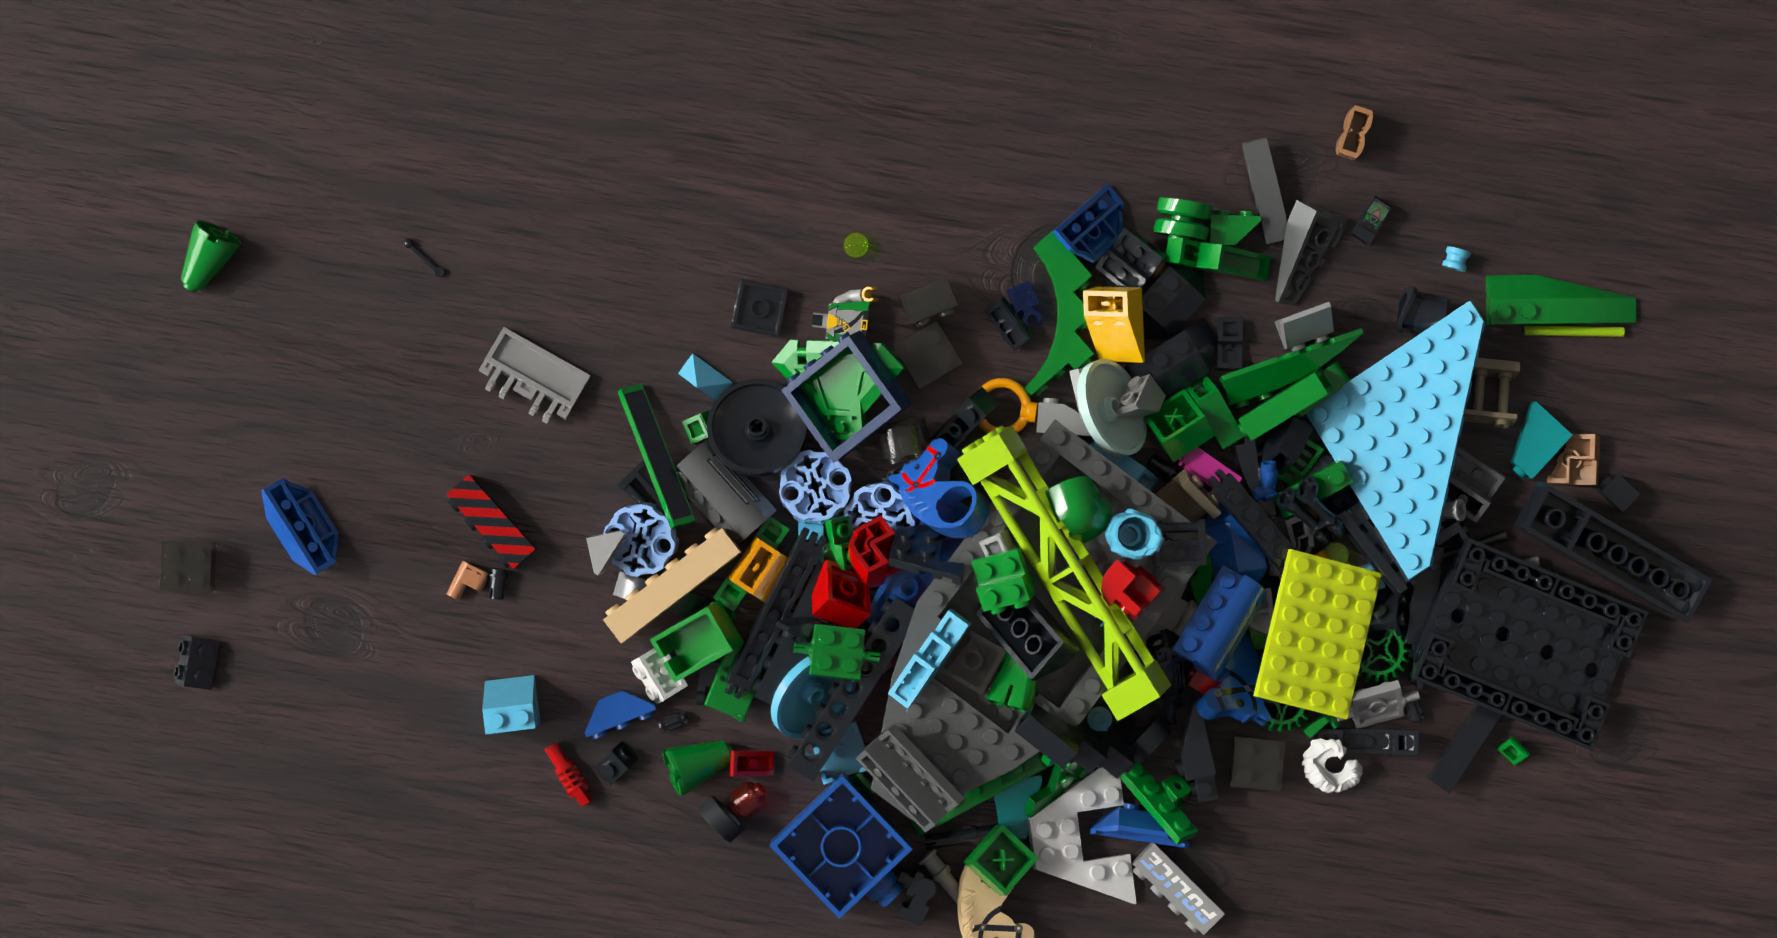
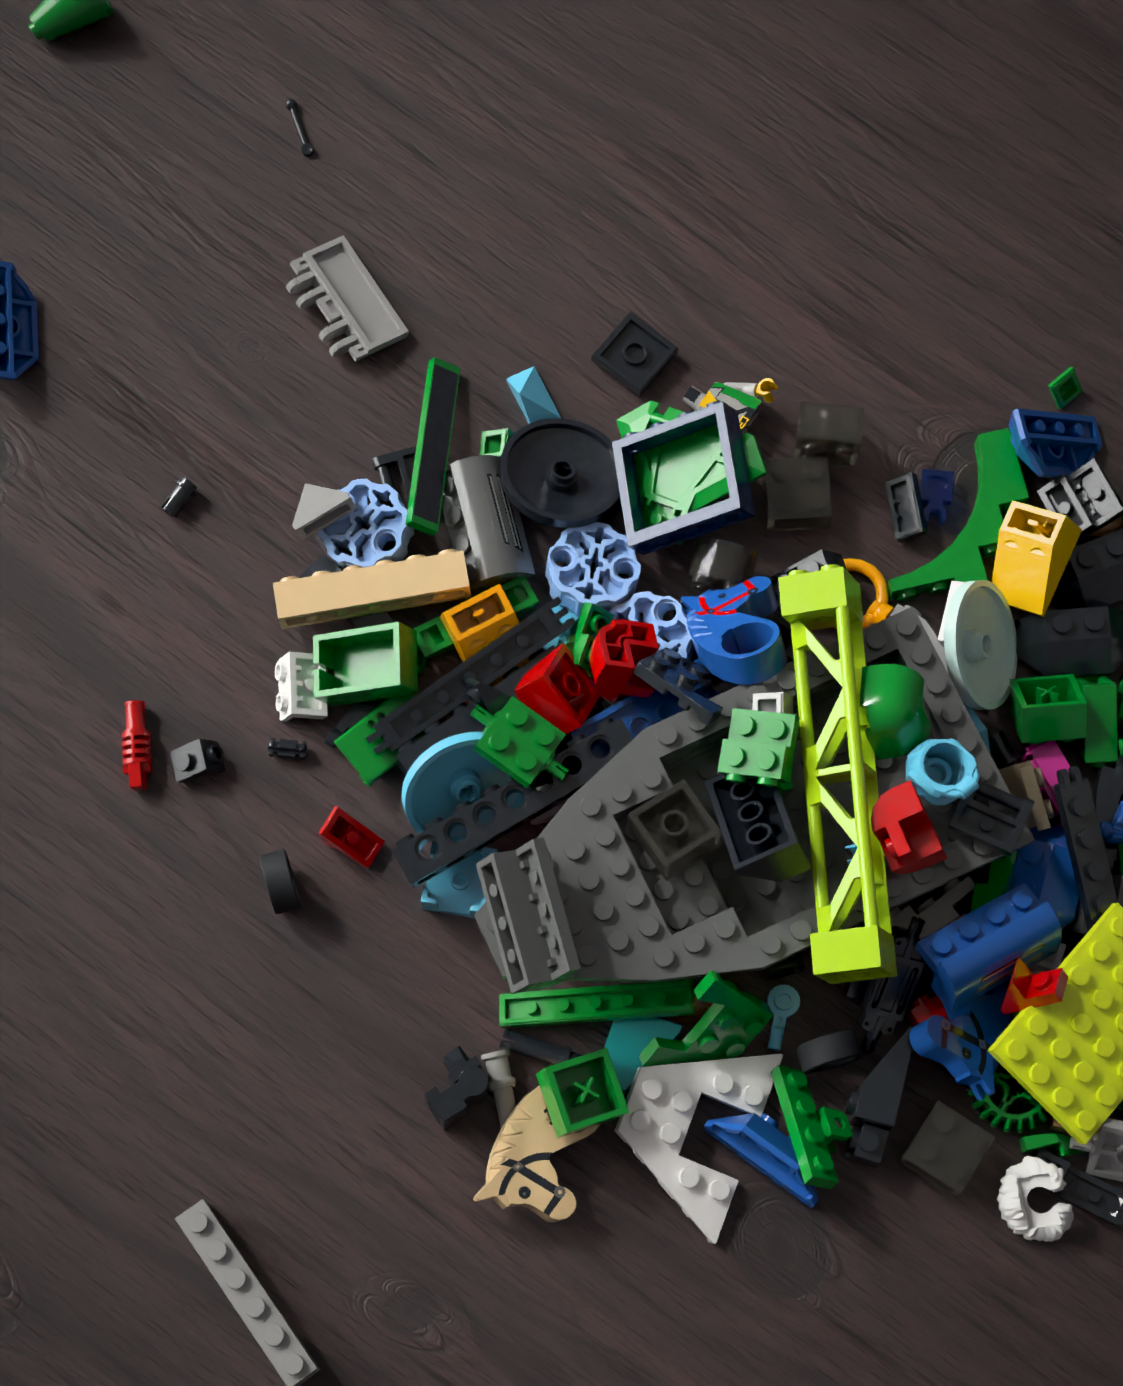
camera: 30 degrees right, 15 degrees down
(467, 576) = (150, 472): nougat piece -> none
(491, 522) = (211, 428): brick -> none
(510, 705) = (114, 634): medium azure slope -> none
(617, 711) = (230, 702): blue slope -> none
(695, 763) = (286, 804): green cone -> none
(748, 799) = (324, 878): clear red head -> none
(844, 847) = (404, 981): blue brick -> none
(856, 245) = (777, 342): clear neon green plate -> none
(863, 783) = (463, 933): green slope -> none
(929, 658) = (624, 795): medium azure slope -> none
(1013, 687) = (707, 884): green piece -> none
(1071, 744) = (756, 1001): black arch -> none
(1076, 173) = (1065, 388): none -> green slope
(1141, 398) = (1018, 655): light grey slope -> none
(1178, 888) = (775, 1250): light grey brick -> none
(1264, 639) = (1033, 989): none -> red slope

